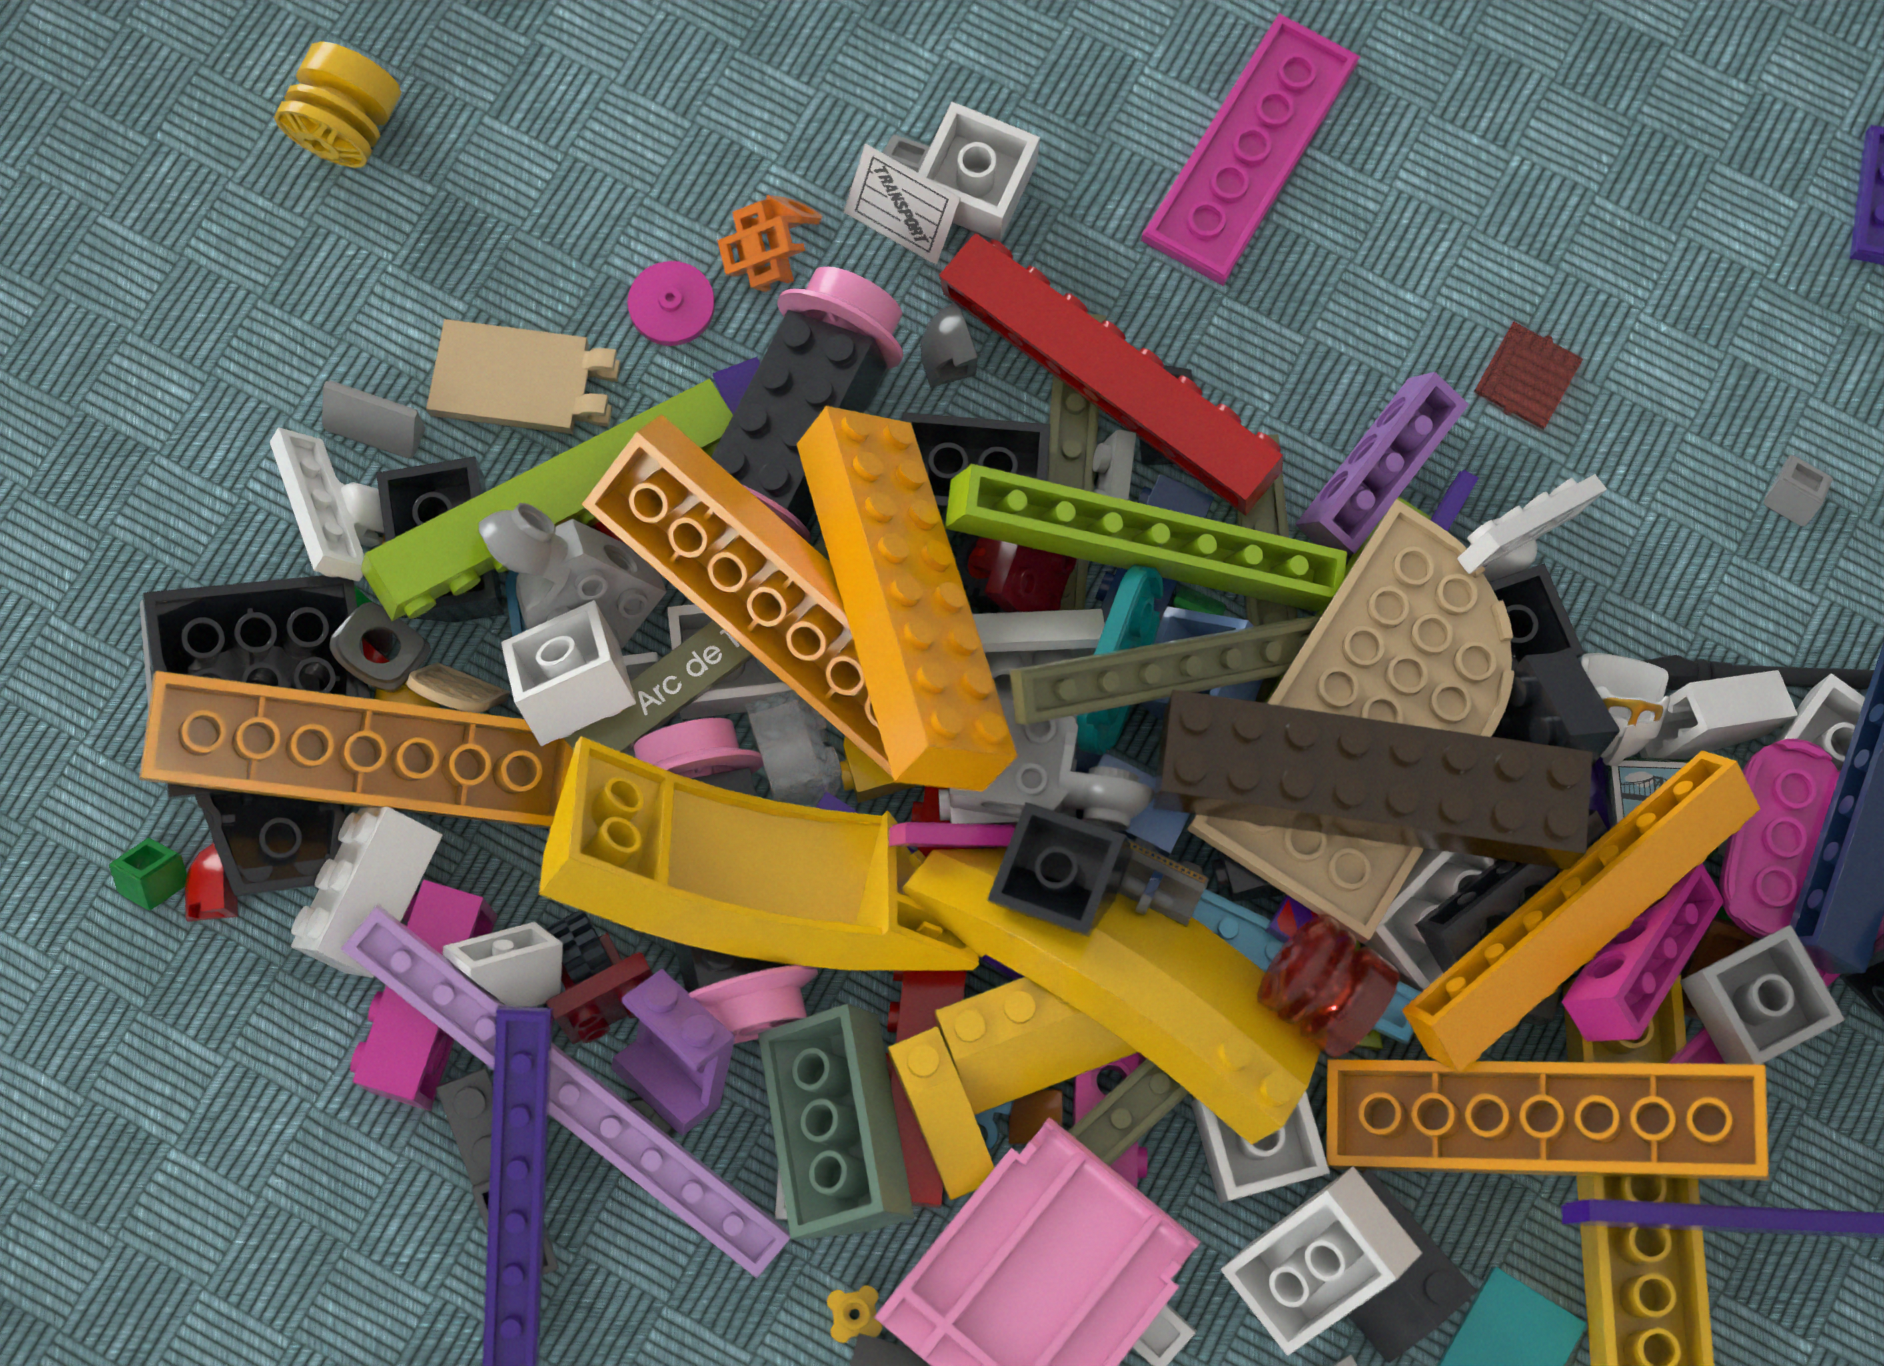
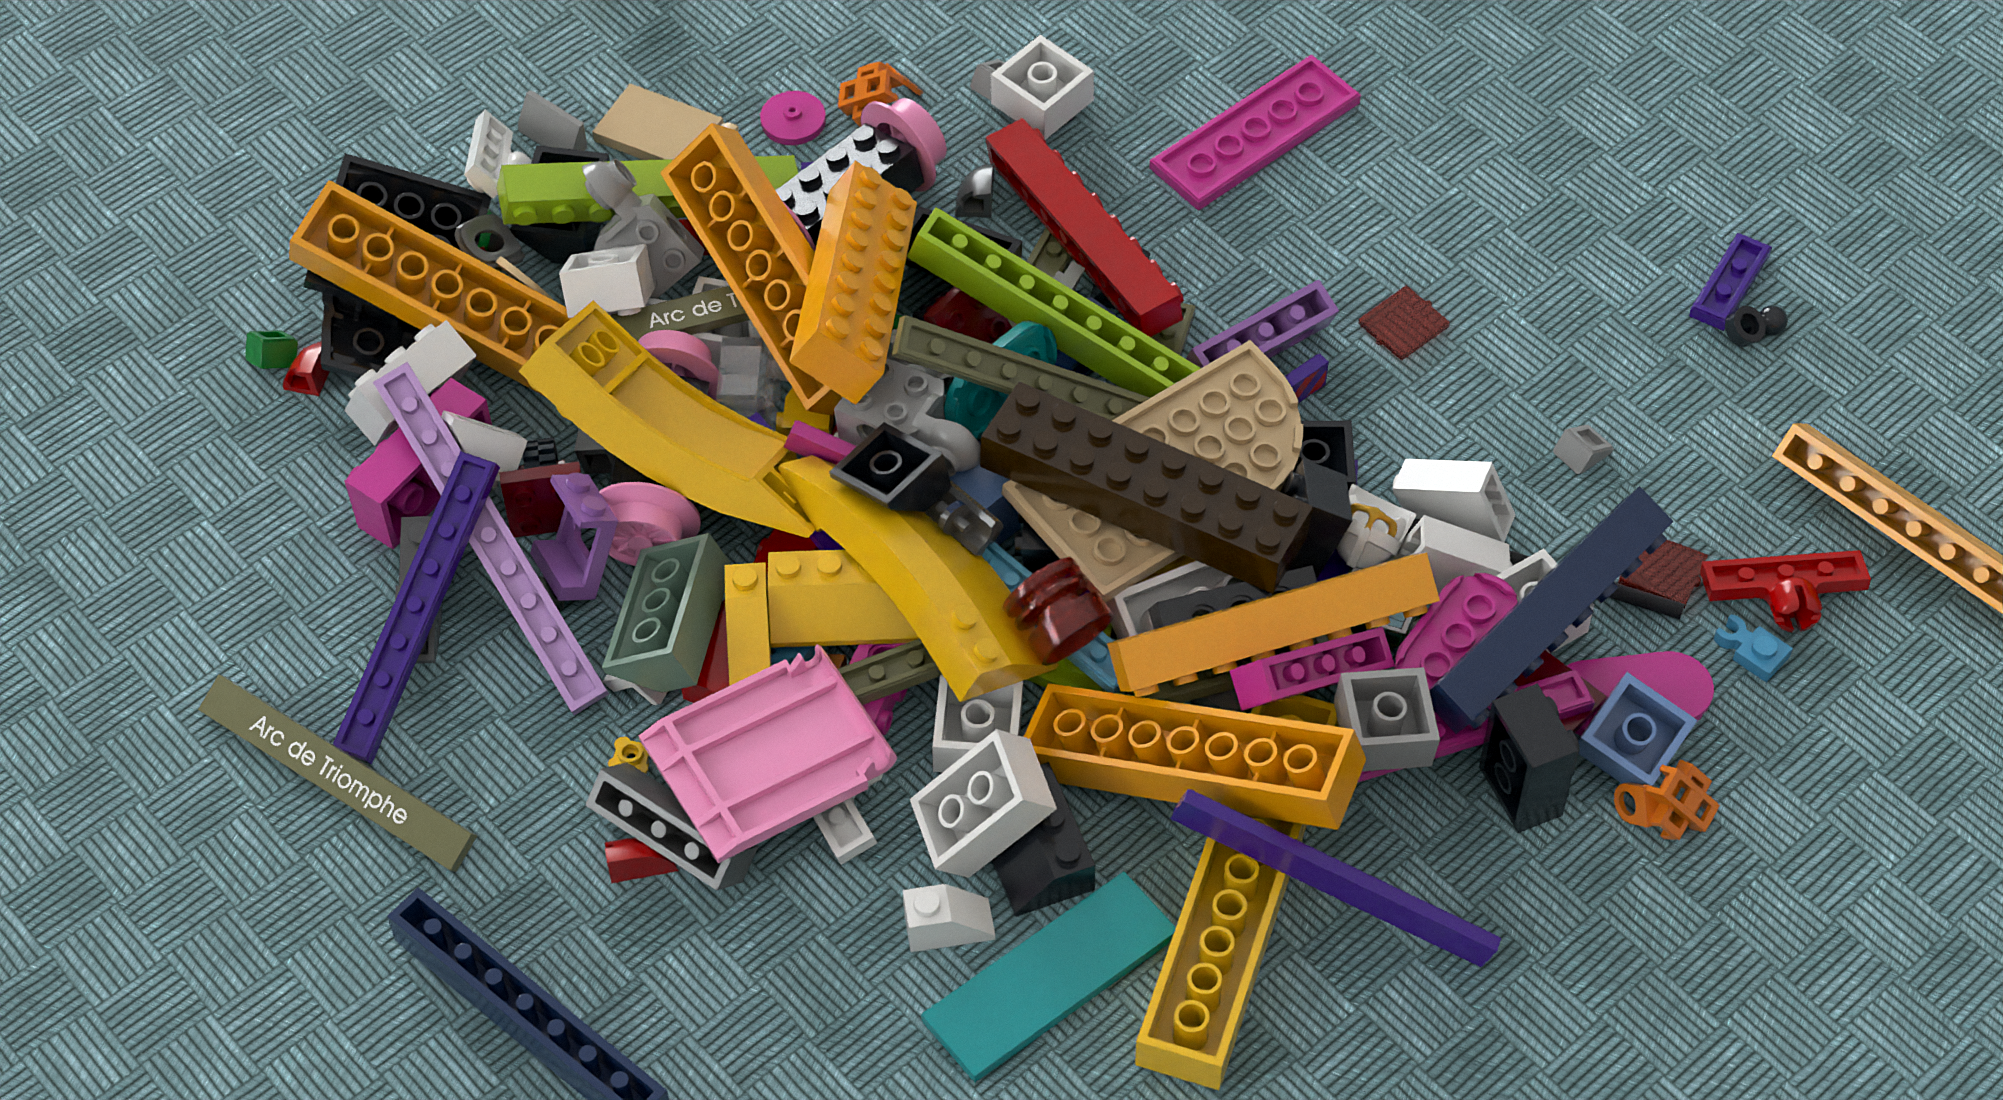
camera: 25 degrees right, 20 degrees down
(901, 204) = (979, 91): white sticker -> none
(1510, 541) = (1348, 394): white plate -> none
(1685, 618) = (1456, 493): none -> white slope

